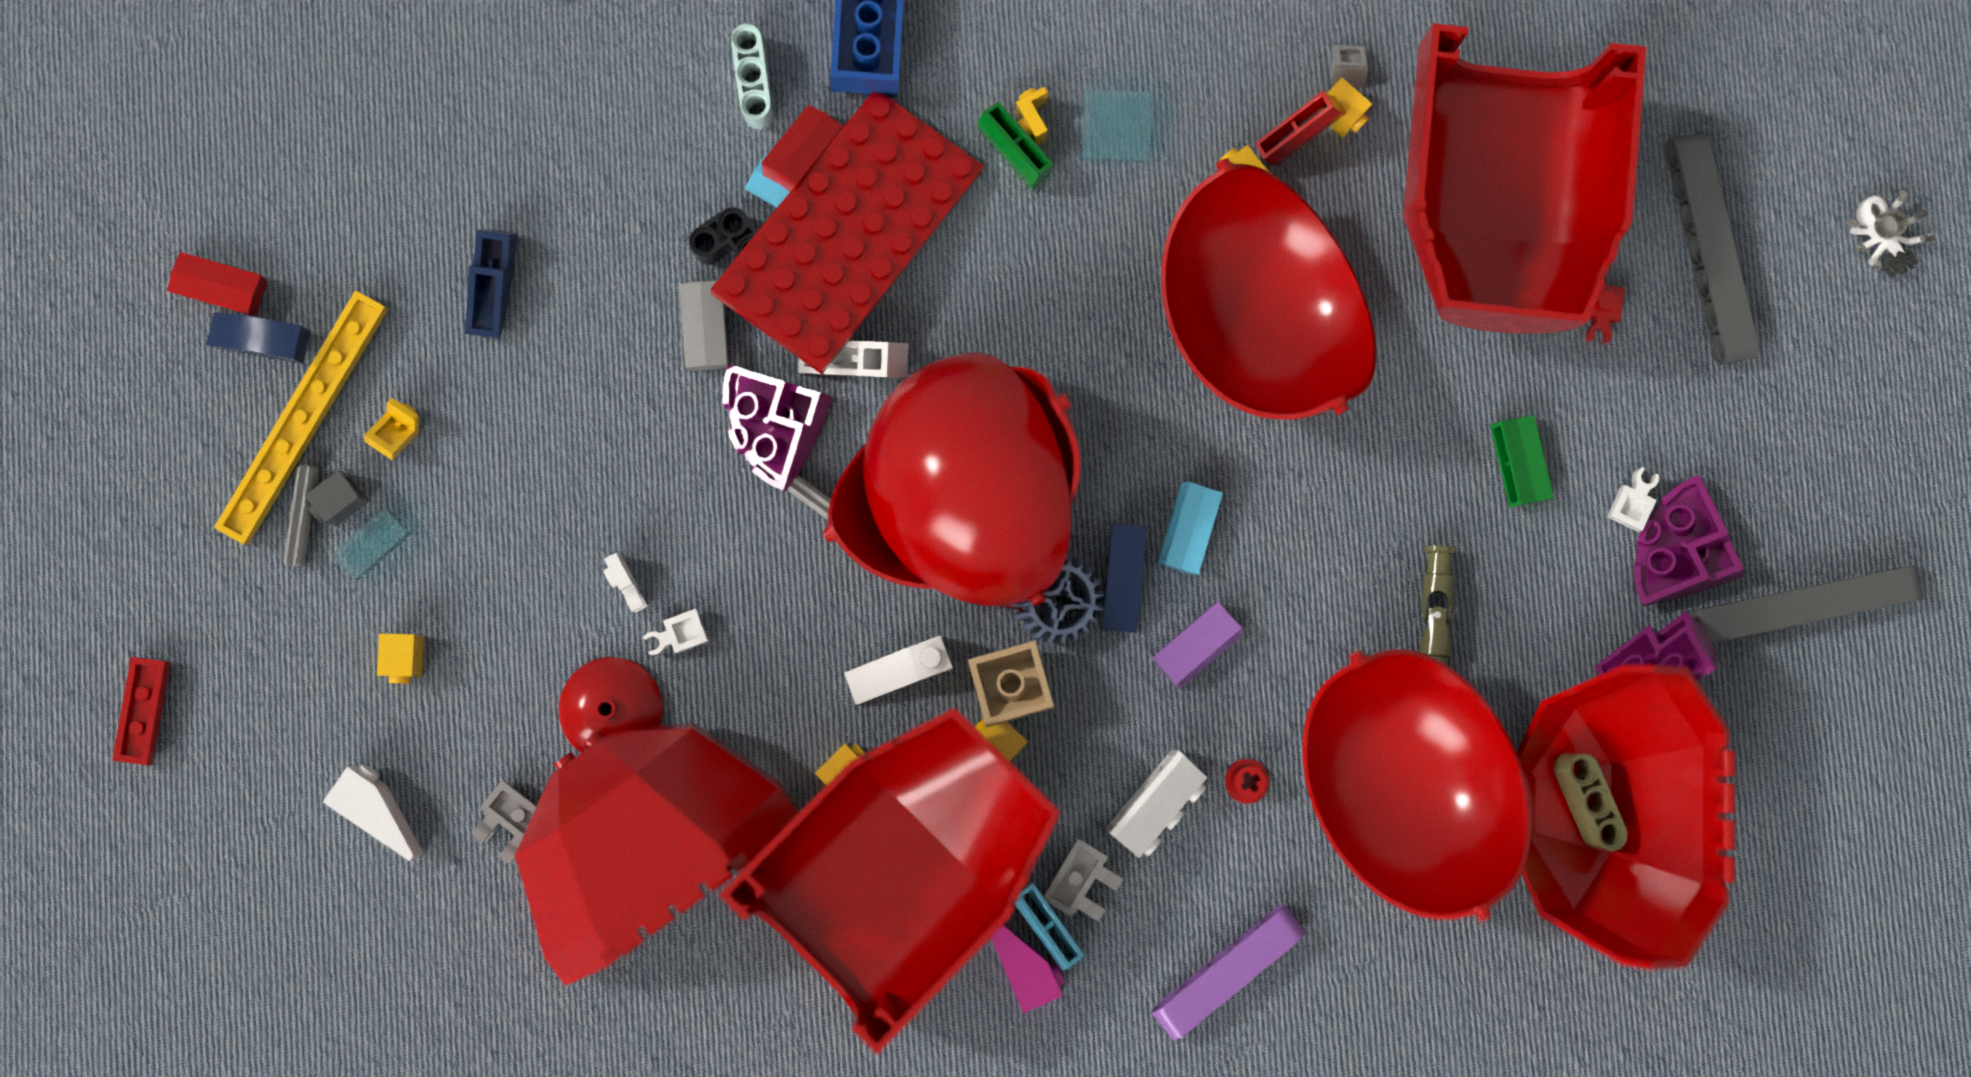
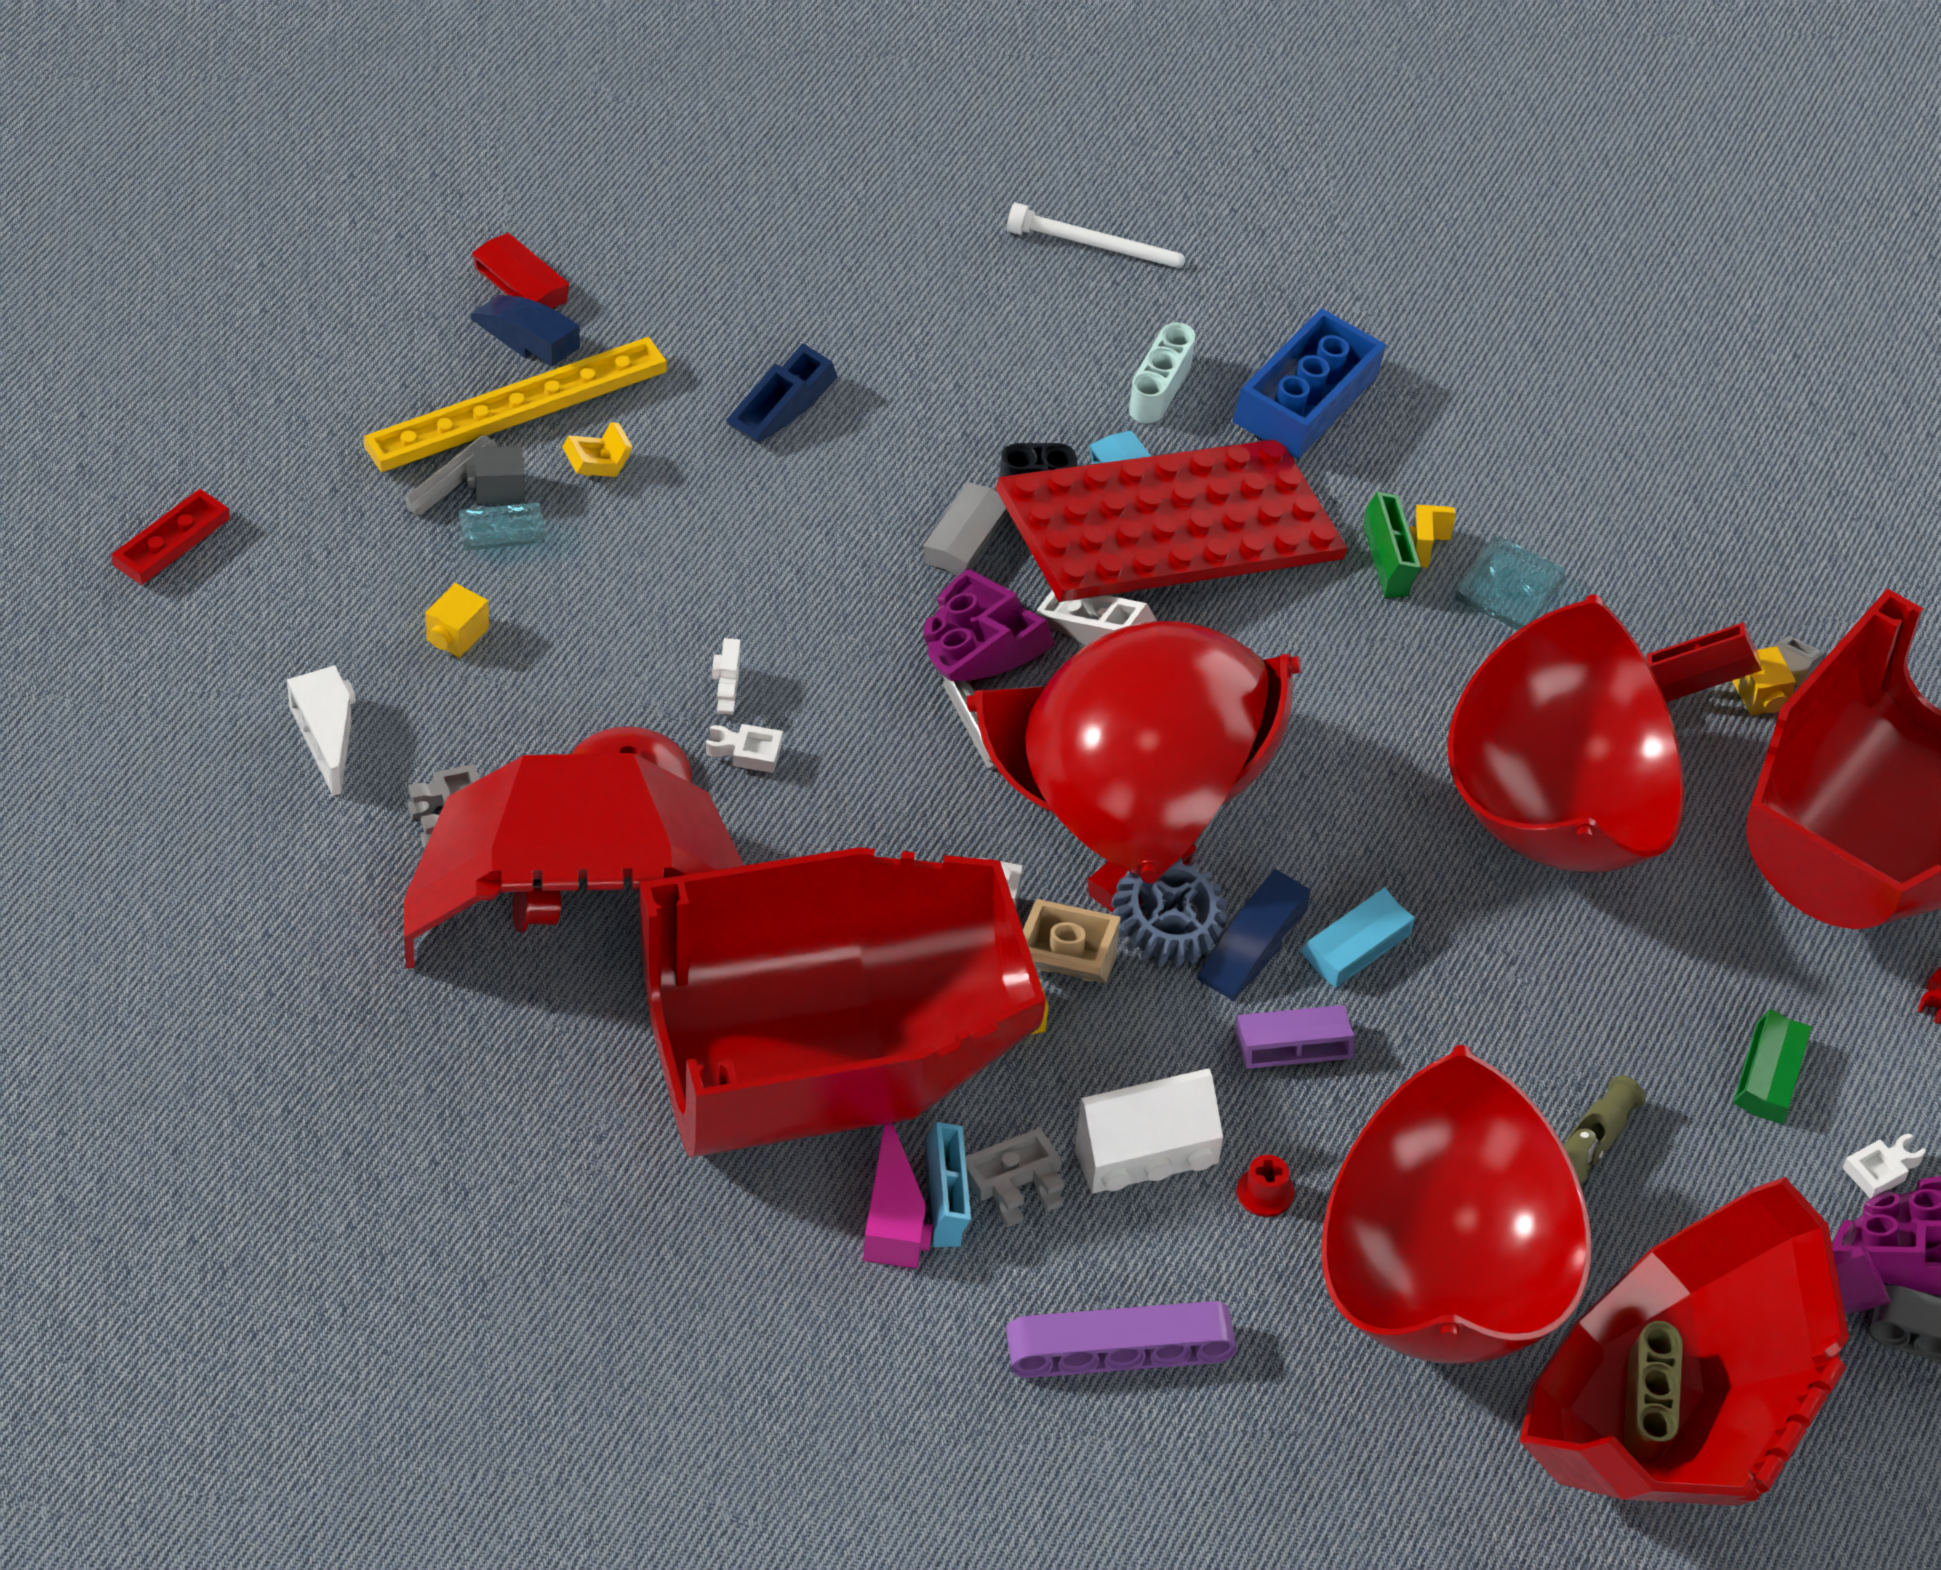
camera: 30 degrees right, 35 degrees down
(800, 147) = (1166, 436): red piece -> none

